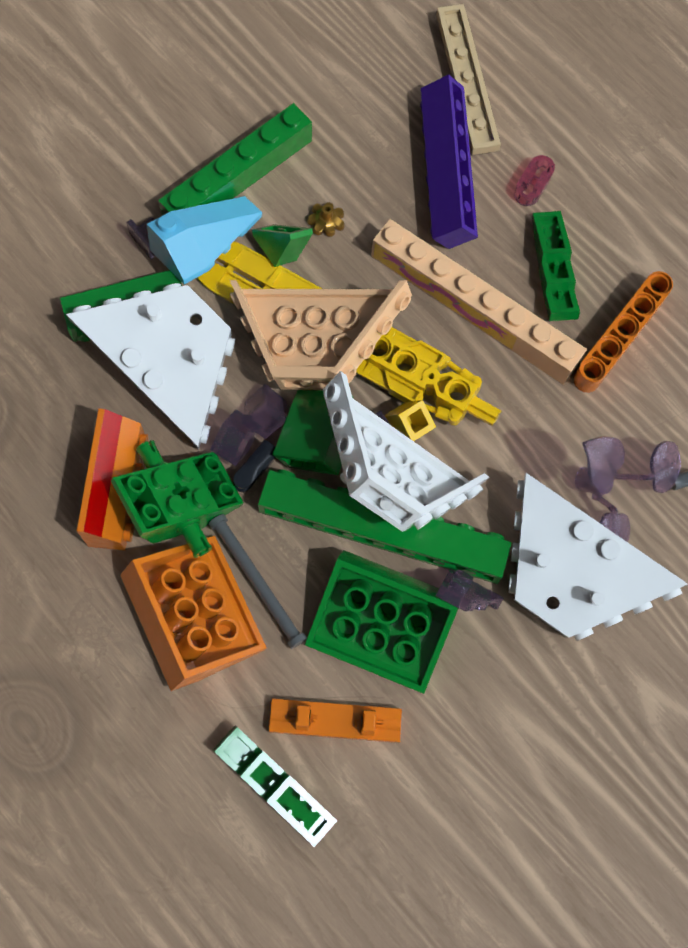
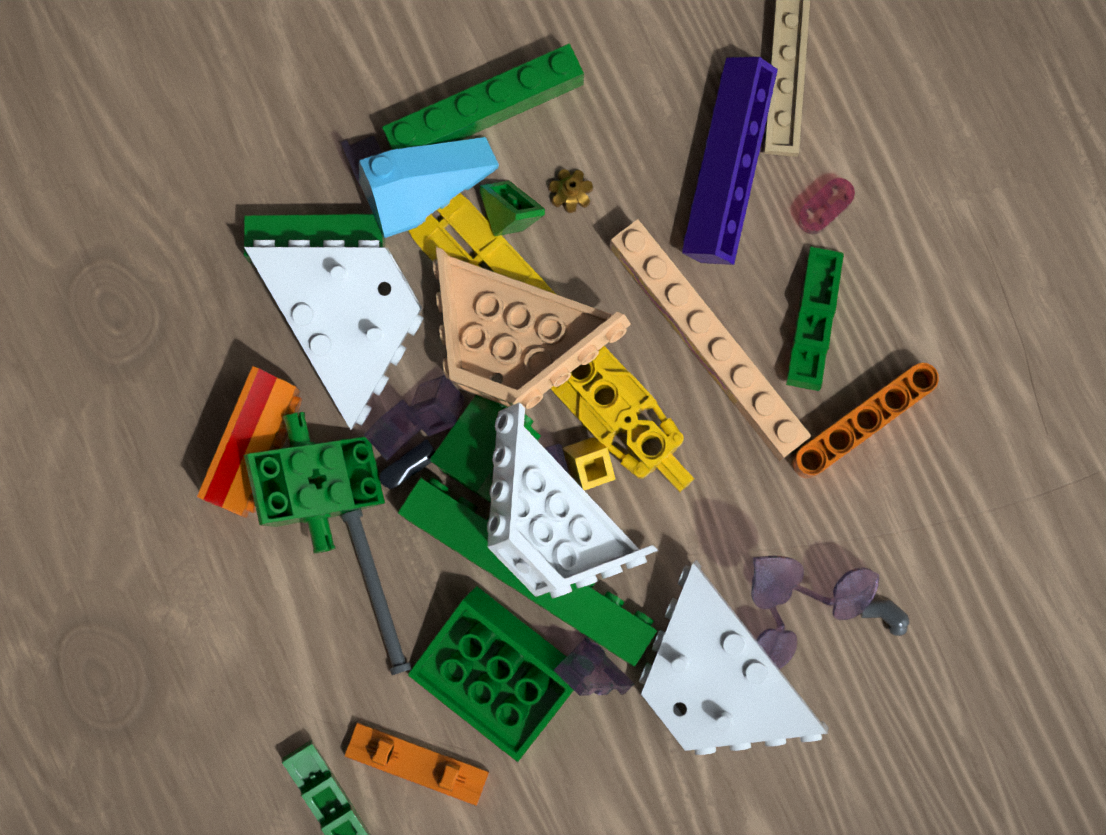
camera: 20 degrees right, 10 degrees up
(191, 612) = (298, 608): orange slope -> none

